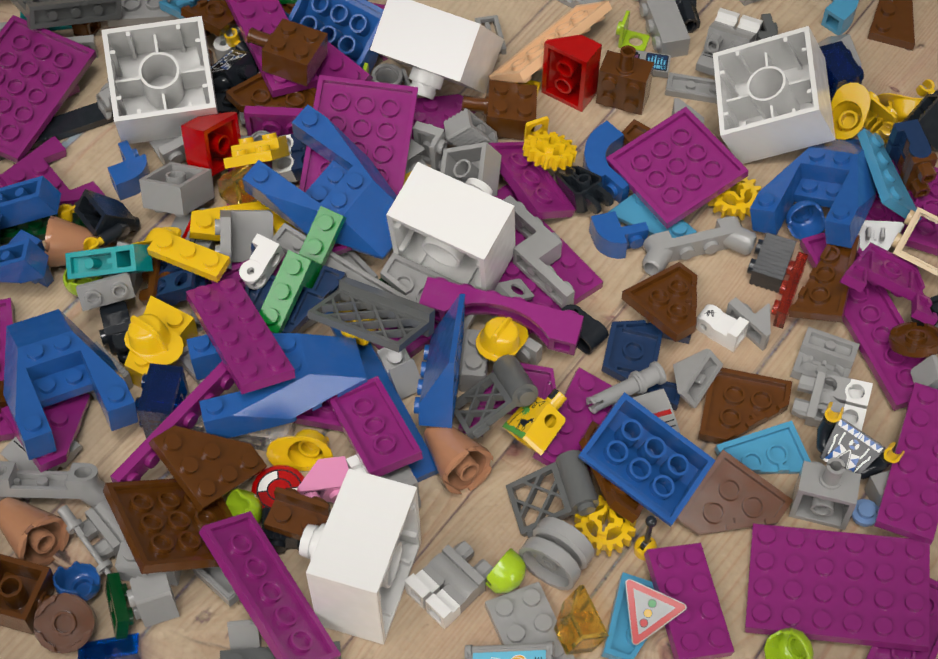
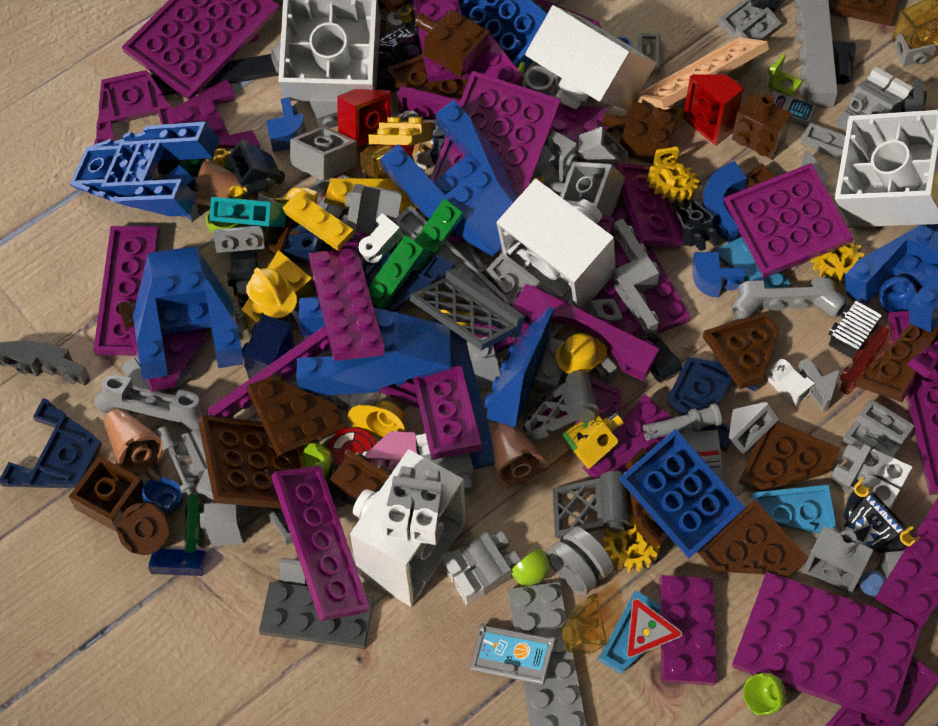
camera: 15 degrees right, 5 degrees up
(369, 515) = (414, 496): none -> hips
(645, 541) = (664, 566): hinge -> none

